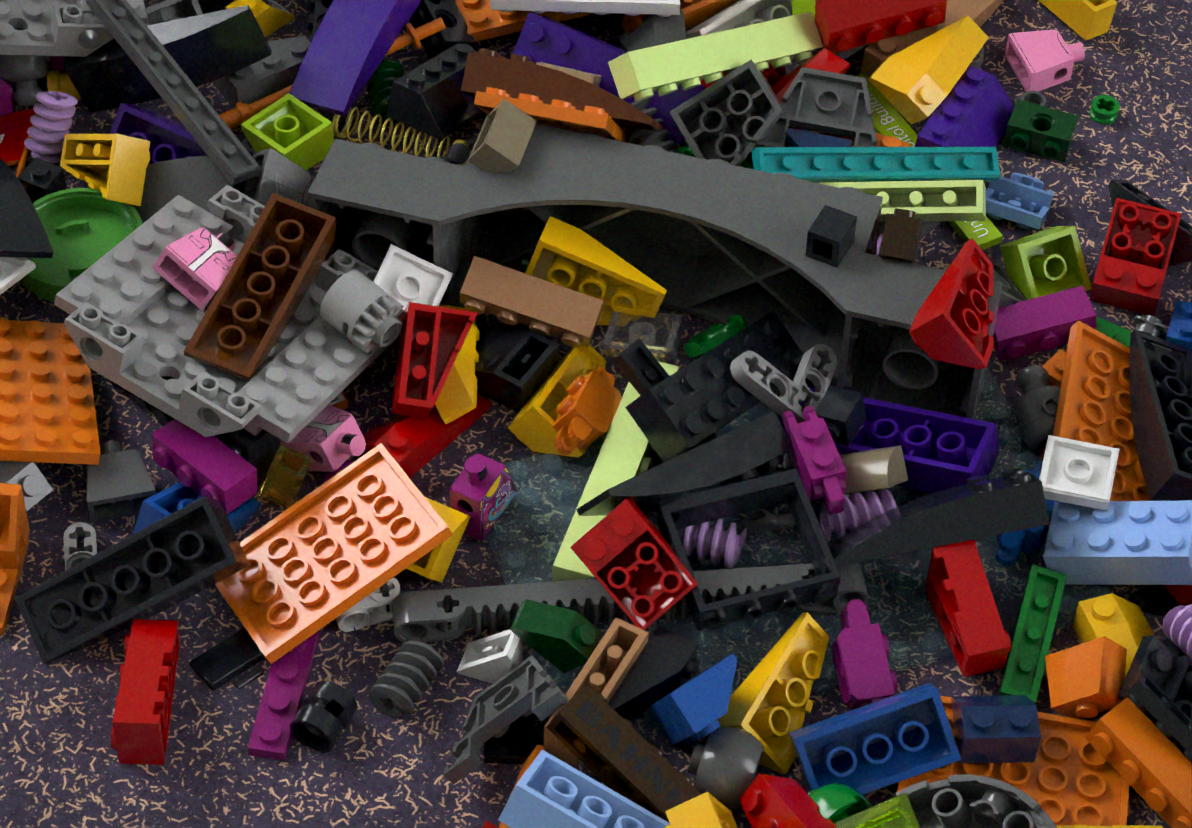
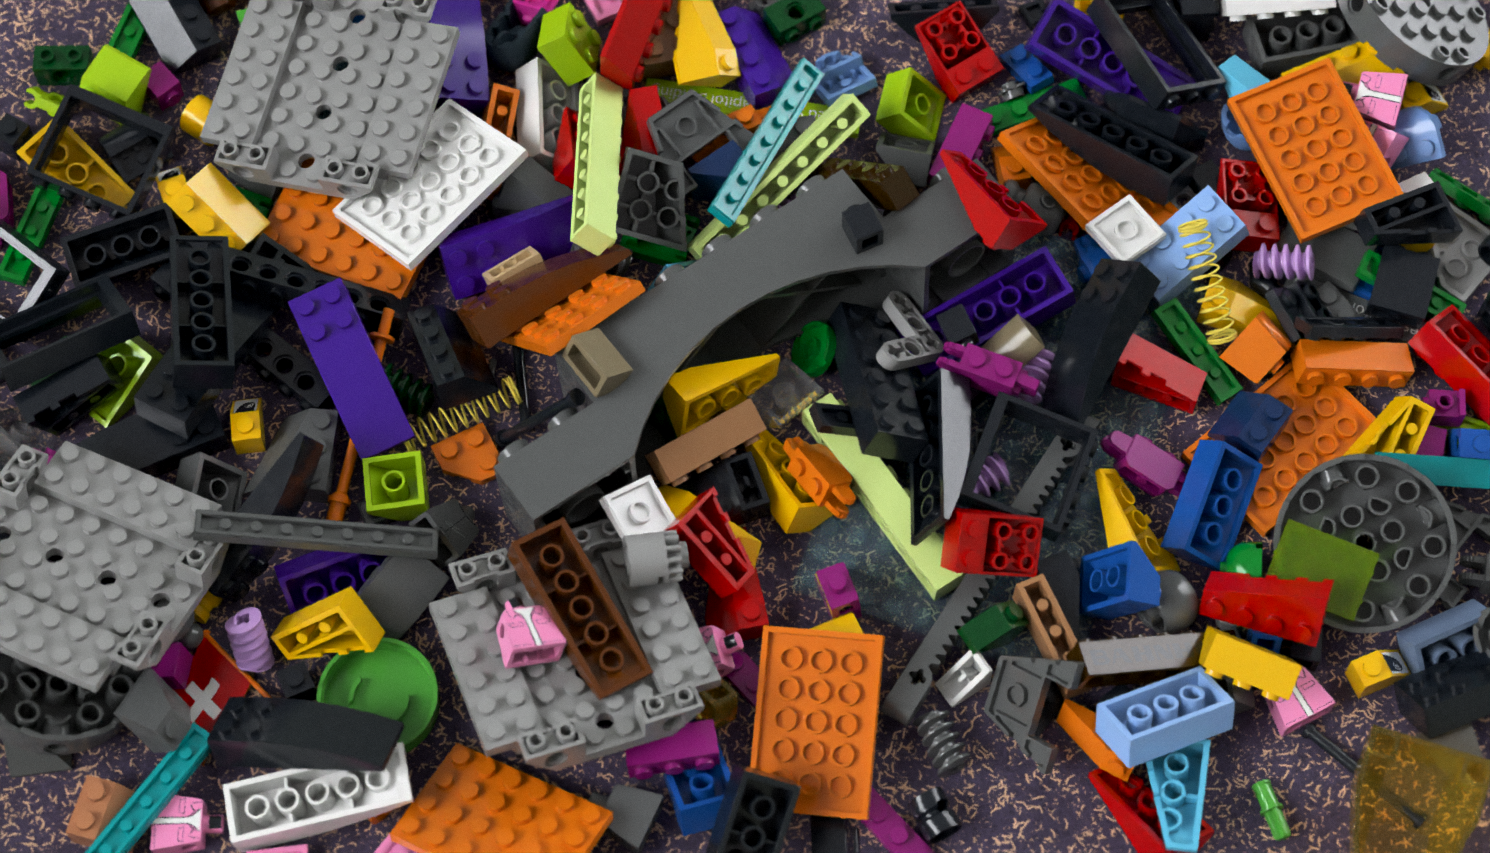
camera: 50 degrees left, 15 degrees up
(1117, 499) = (1195, 227): none -> light yellow piece

